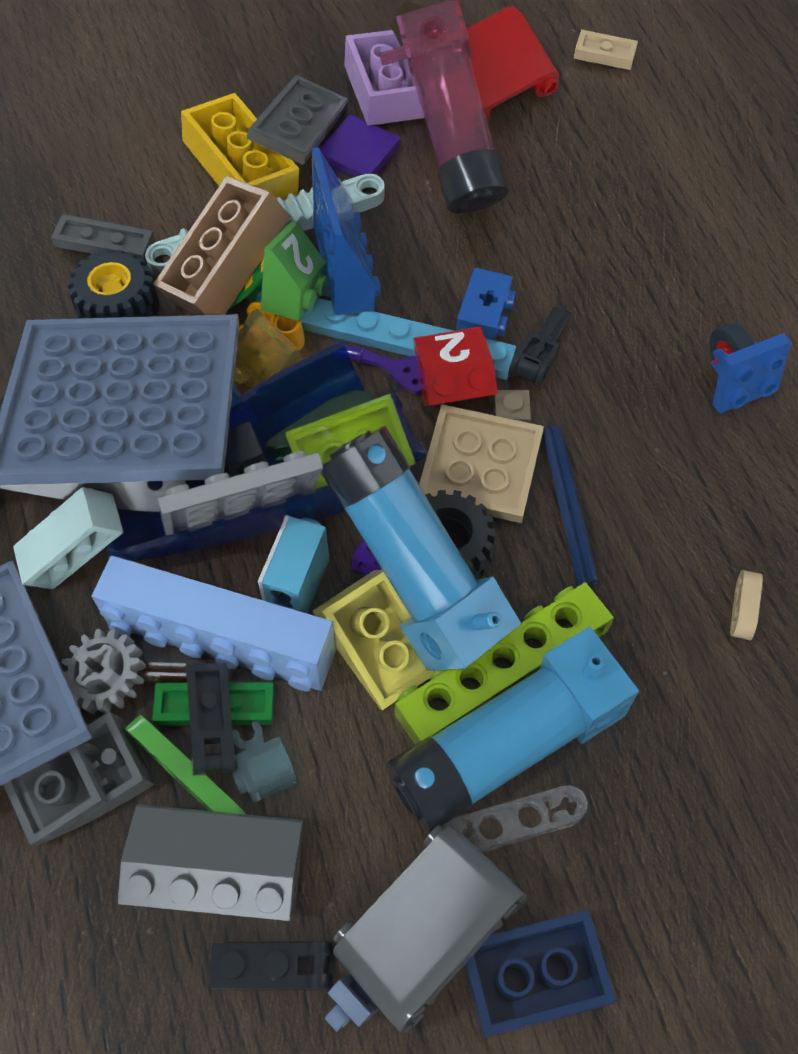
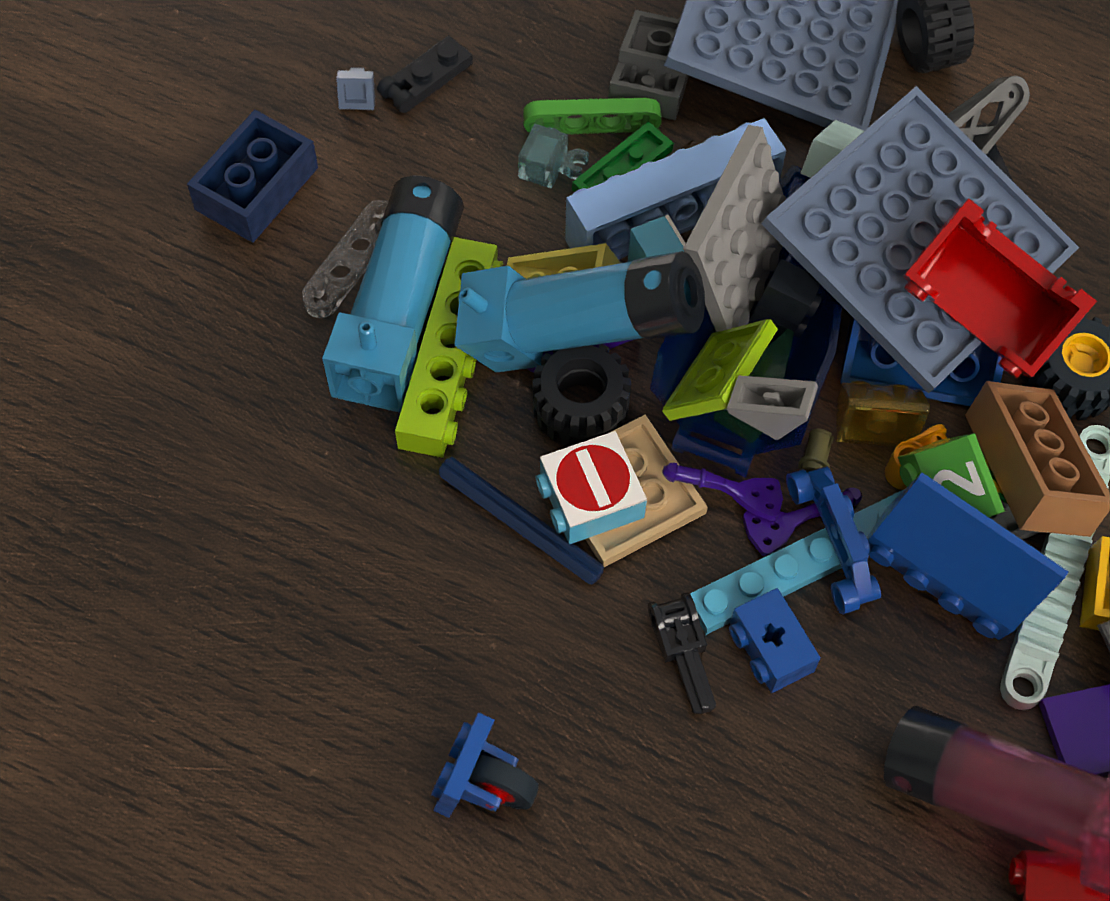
camera: 135 degrees right, 0 degrees up
(103, 670) = (711, 115): light grey gear -> none
(128, 312) = (996, 291): none -> red windscreen
(209, 717) = (607, 137): black plate -> none
(211, 862) = (512, 75): dark grey slope -> none
(359, 365) = (772, 403): none -> light grey slope
(377, 320) = (849, 544): none -> blue plate
(408, 399) = (740, 492): none -> dark purple piece
(427, 926) = (341, 145): windscreen -> none
(454, 366) = (727, 538): red slope -> none
(513, 405) = (651, 569): dark tan plate -> none
(514, 460) = (591, 488): none -> piece
(746, 605) = (301, 547): tan beam -> none

